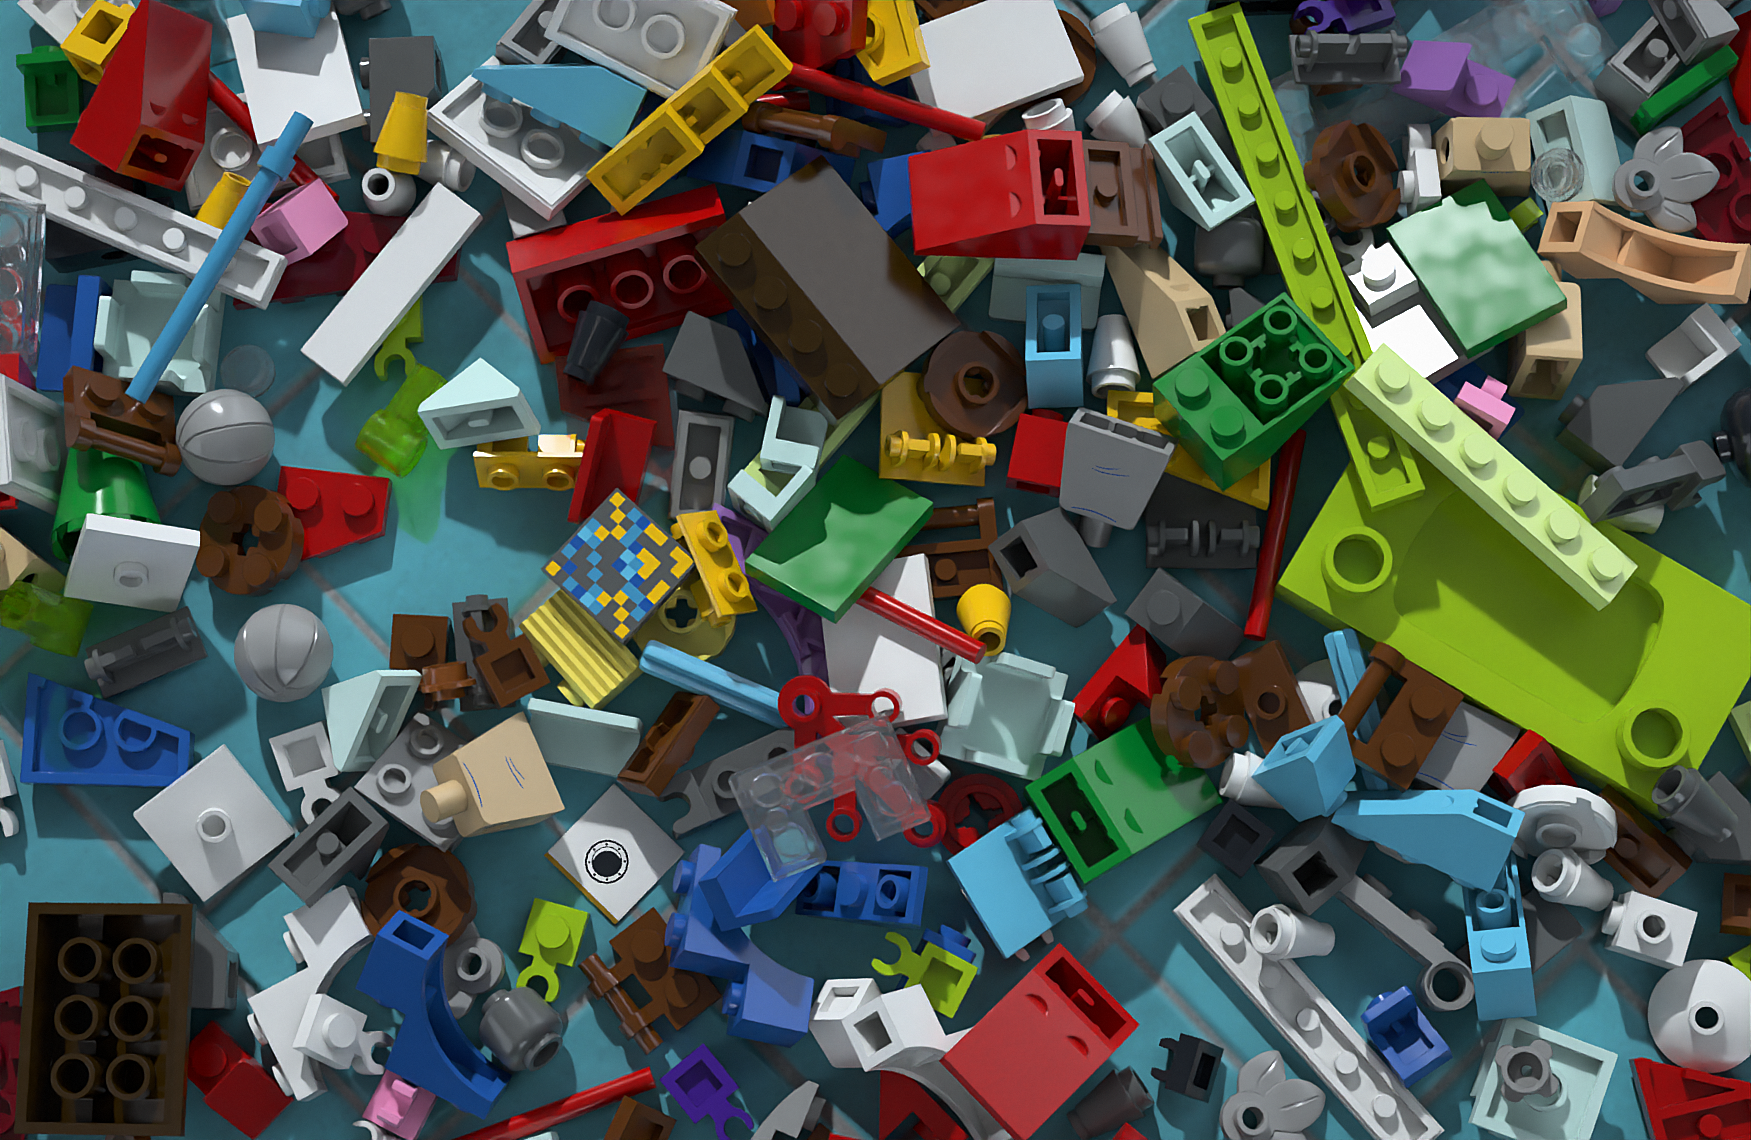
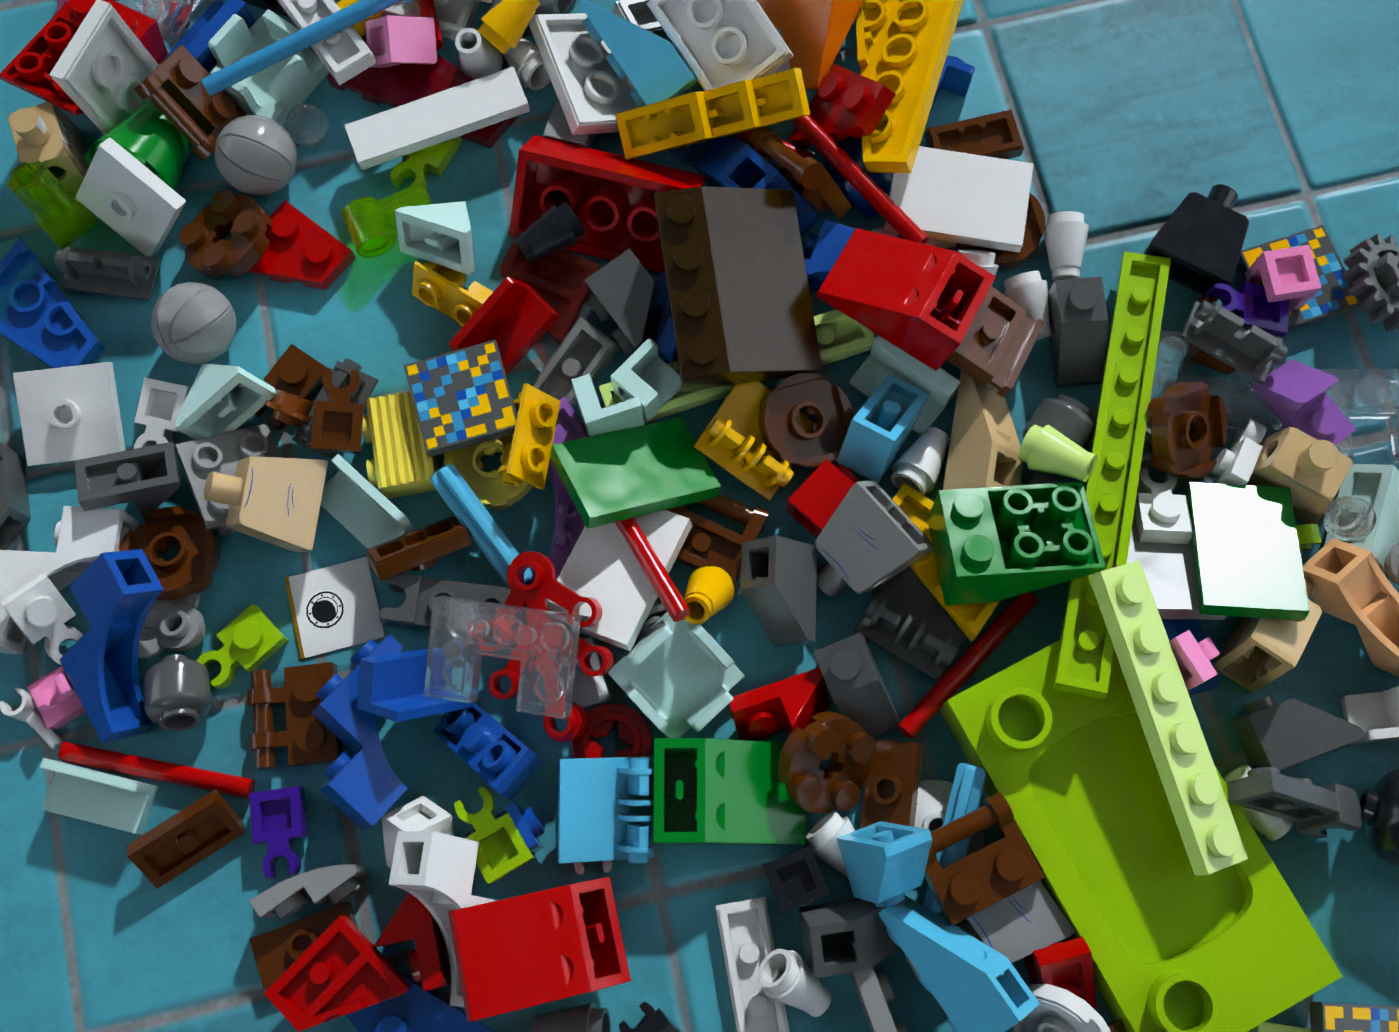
camera: 30 degrees right, 5 degrees down
(1198, 173) = (1067, 359): light aqua slope -> none
(1243, 278) = (1054, 453): none -> yellowish green cone

